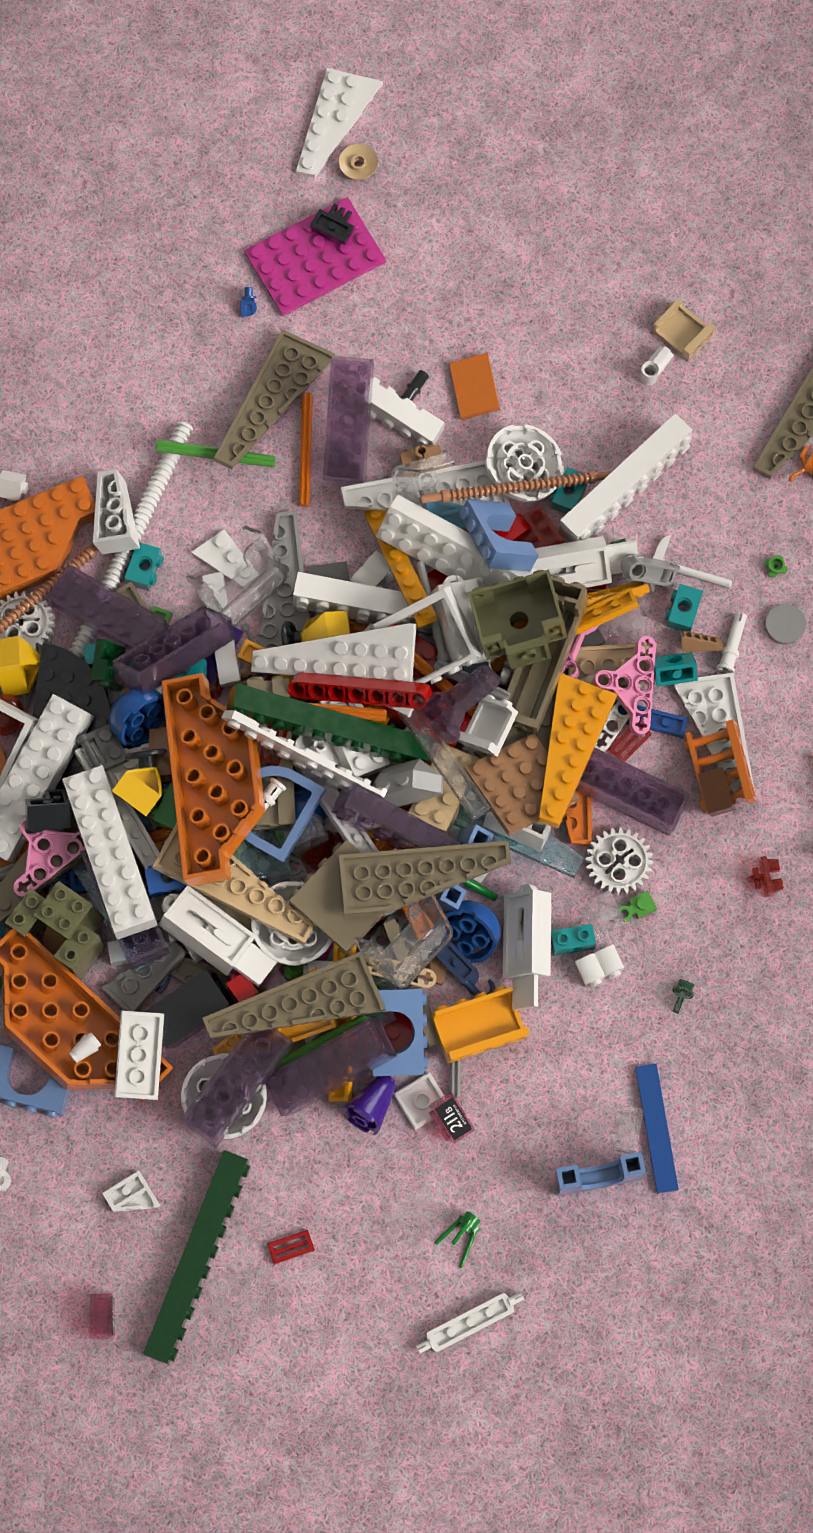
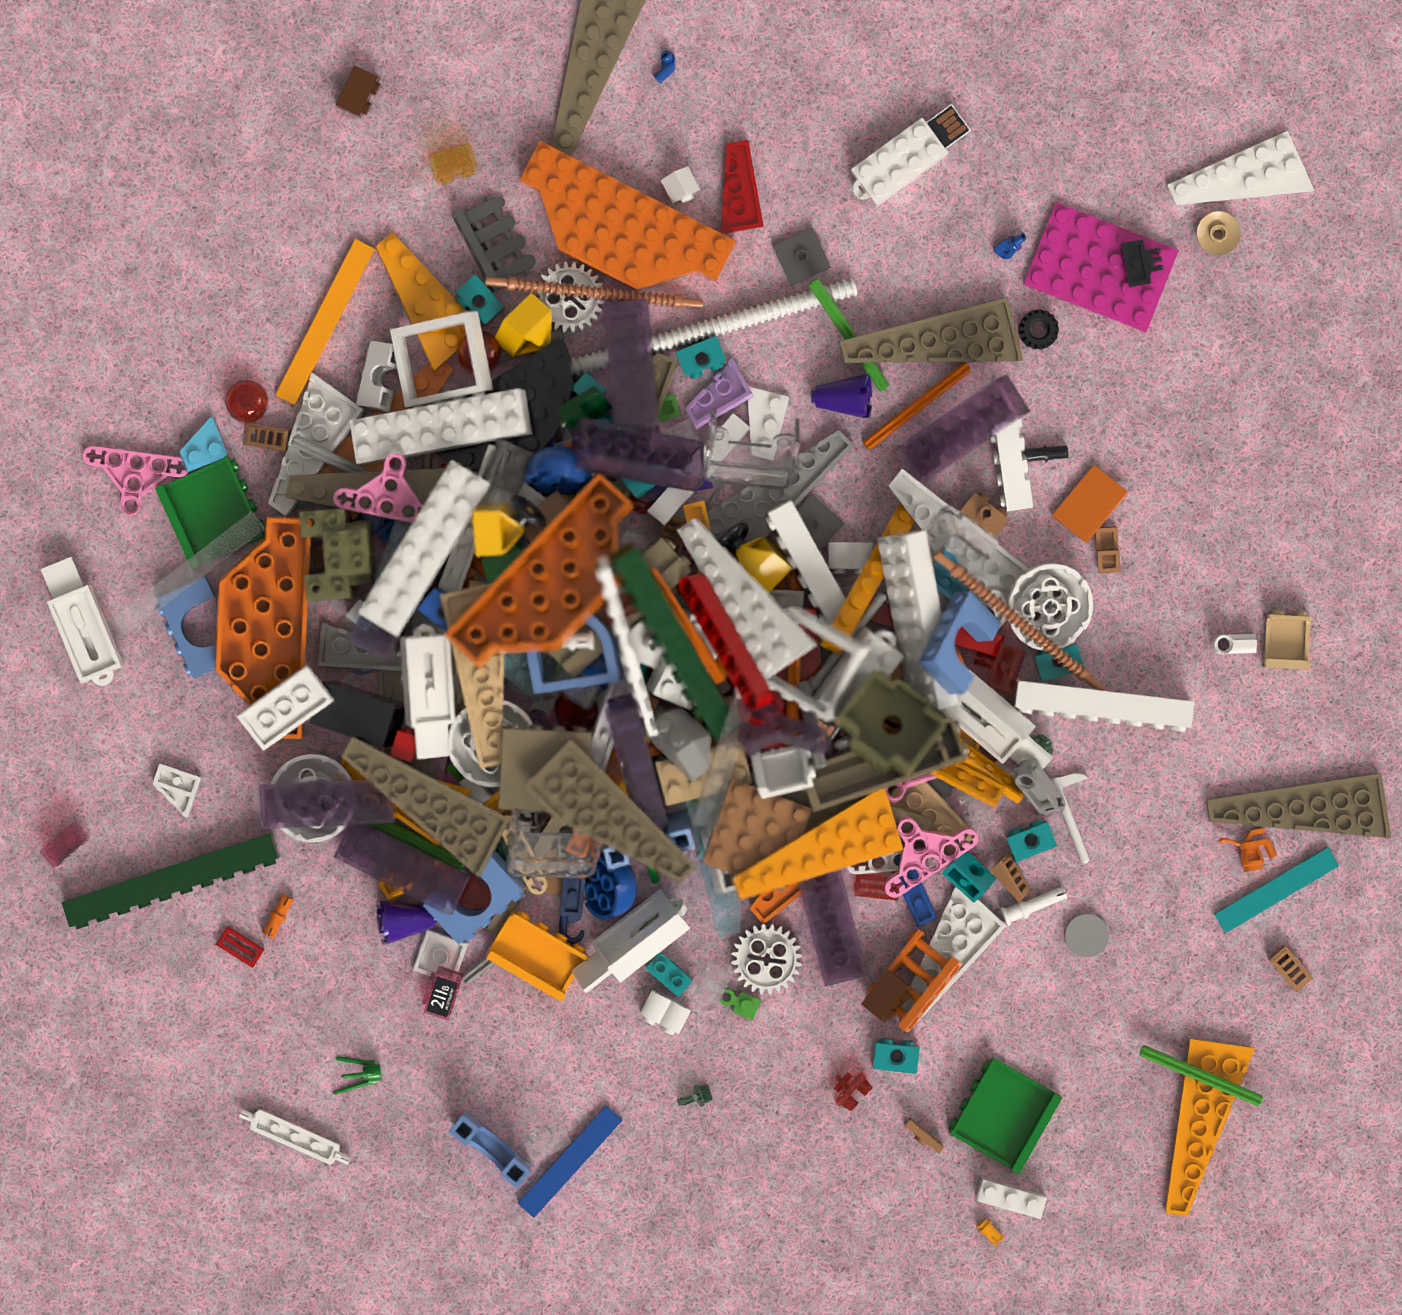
camera: 45 degrees right, 15 degrees up
(48, 812) = (417, 471): black brick -> none
(54, 452) = (740, 195): none -> red wing
(85, 1047) = (254, 660): white cone -> none
(113, 515) = (723, 296): white wedge -> none
(126, 321) = (907, 156): none -> white piece
(133, 446) = (801, 256): none -> dark grey plate
(179, 564) = (722, 395): none -> lavender wing
(256, 489) = (845, 396): none -> dark purple cone
(291, 1198) = (278, 915): none -> orange pin
(314, 319) = (1050, 322): none -> black tyre
(518, 401) = (1107, 550): none -> medium nougat slope
(764, 836) = (906, 1064): none -> teal brick
(777, 560) = (1126, 888): bright green plate -> none

